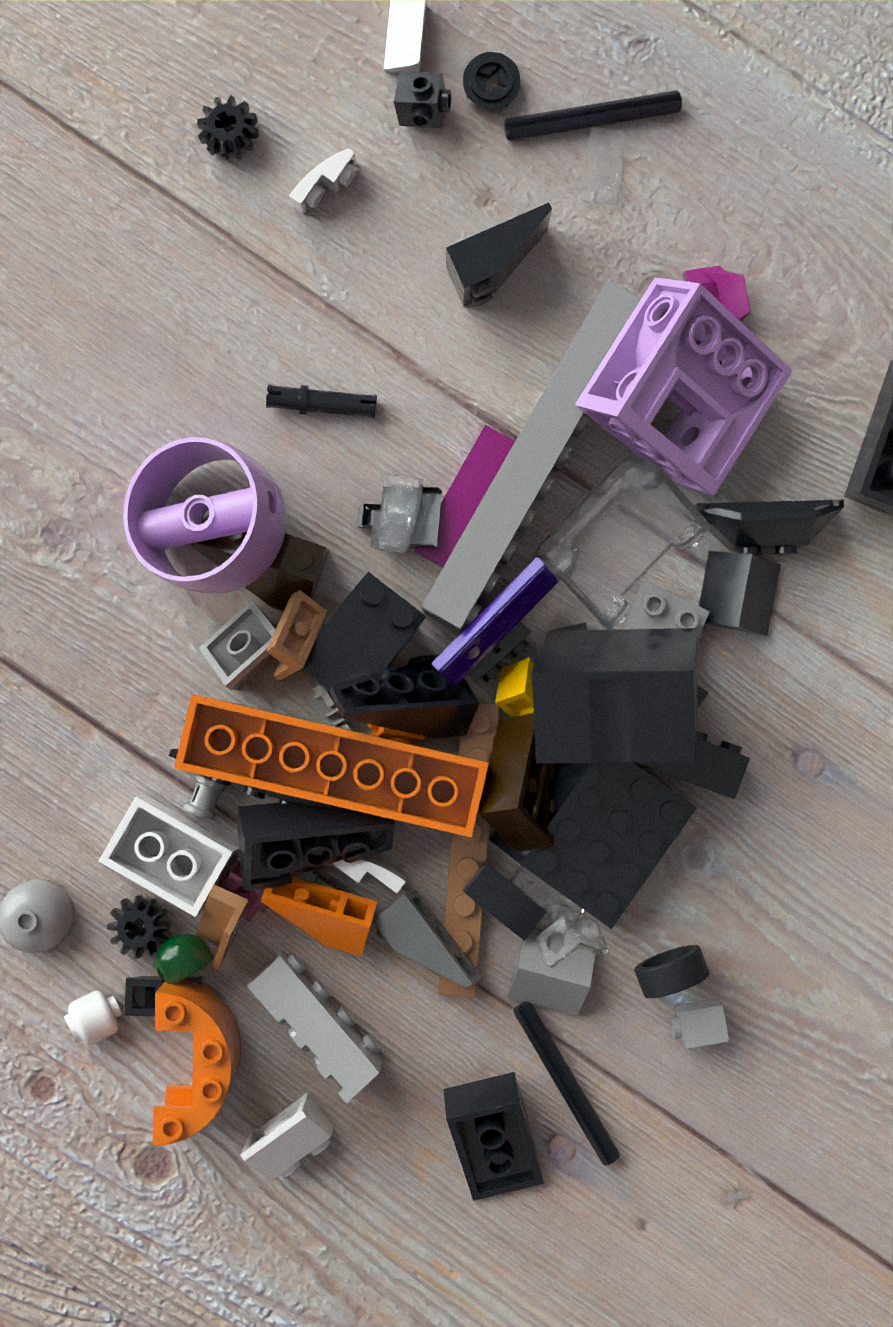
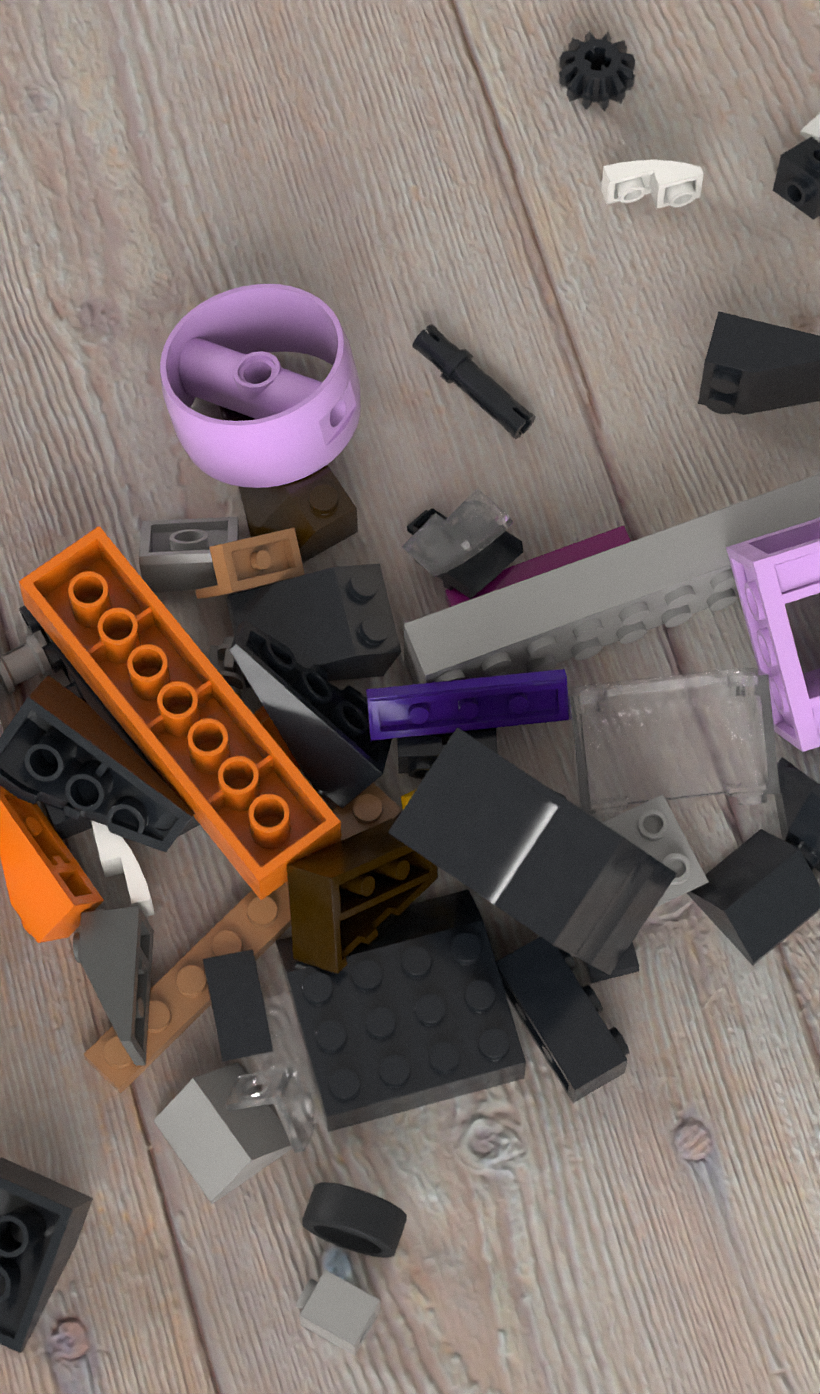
camera: 40 degrees right, 20 degrees down
(566, 1083) = (137, 1264): black axle -> none

